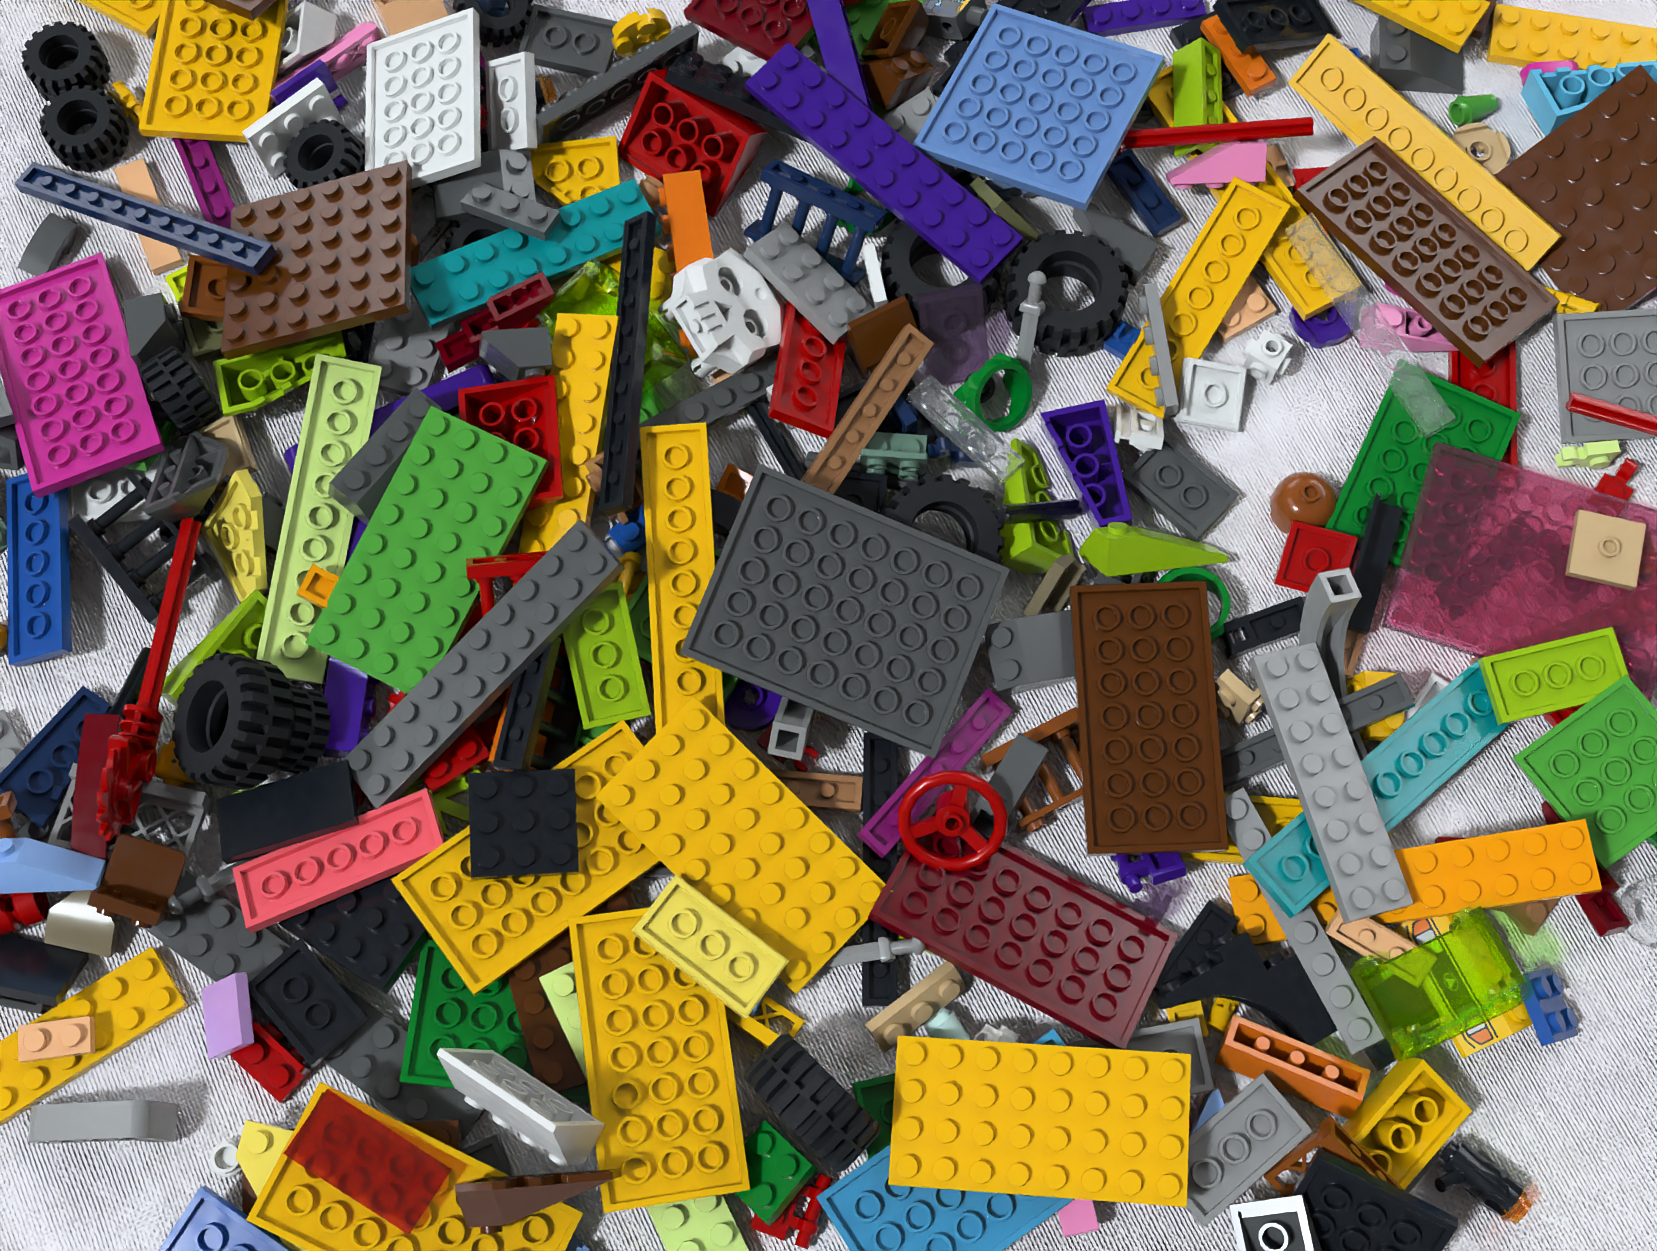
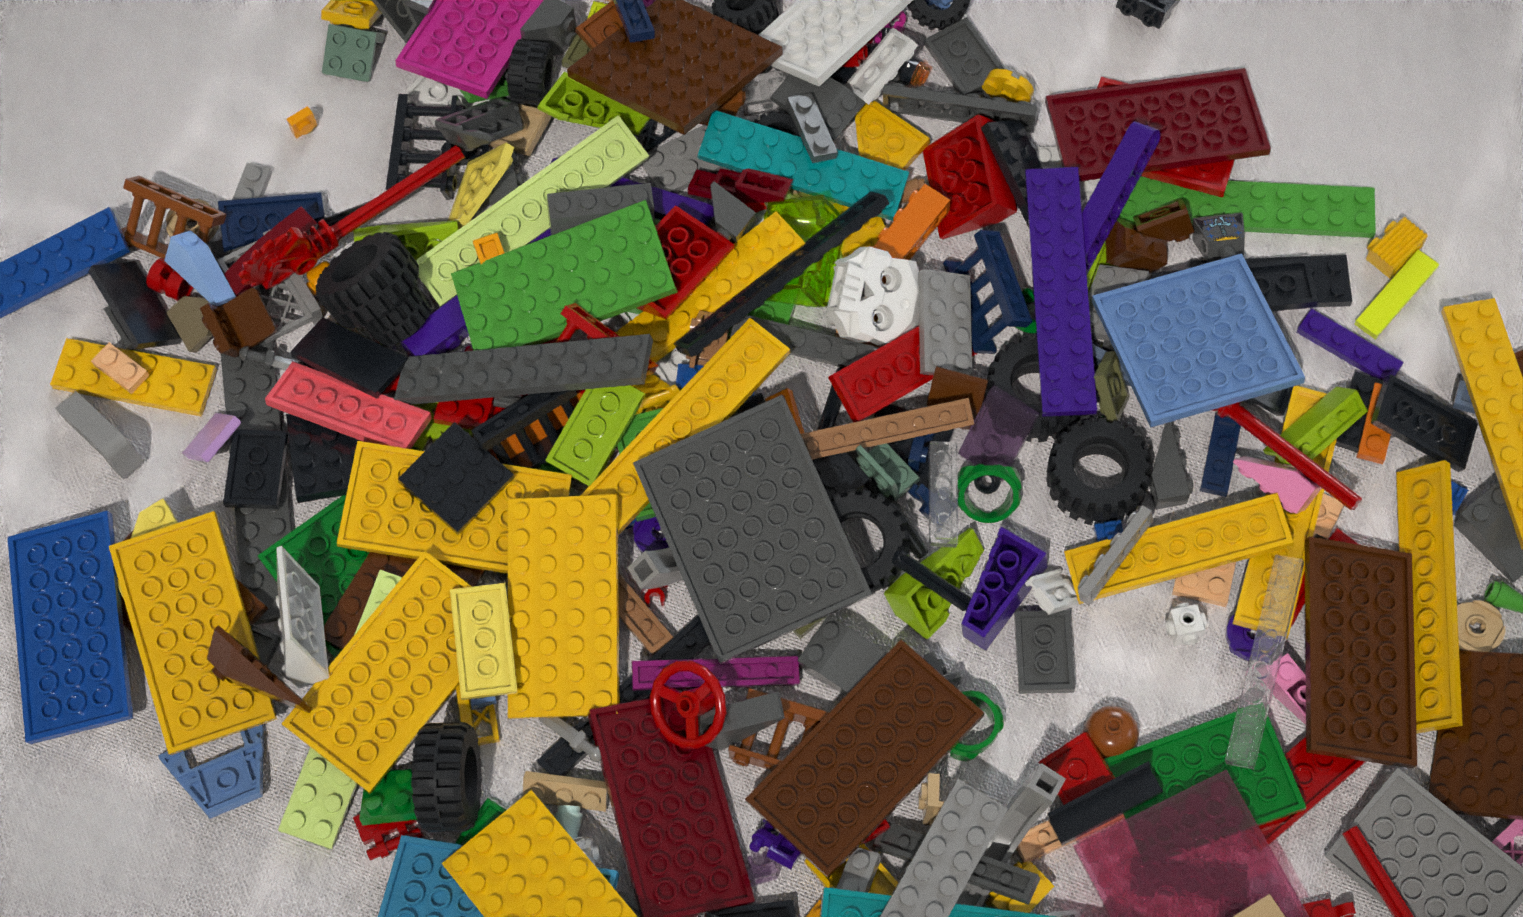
camera: 50 degrees right, 5 degrees down
(37, 573) = (358, 110): blue plate -> none
(223, 1159) = (133, 511): white plate -> none
(272, 1062) = (209, 485): red bracket -> none
(367, 1161) = (195, 576): clear red tile -> none
(874, 275) = (981, 362): white tile -> none
(1032, 310) = (1057, 457): light grey sword -> none
(1055, 586) = (903, 628): dark tan slope -> none
(1134, 550) = (970, 660): lime wedge -> none
(1211, 394) = (1123, 614): white tile -> none
(1263, 627) = (999, 779): black plate -> none
(1571, 304) = (1425, 773): yellow pin -> none
(1594, 454) = (1335, 881): yellowish green plate -> none

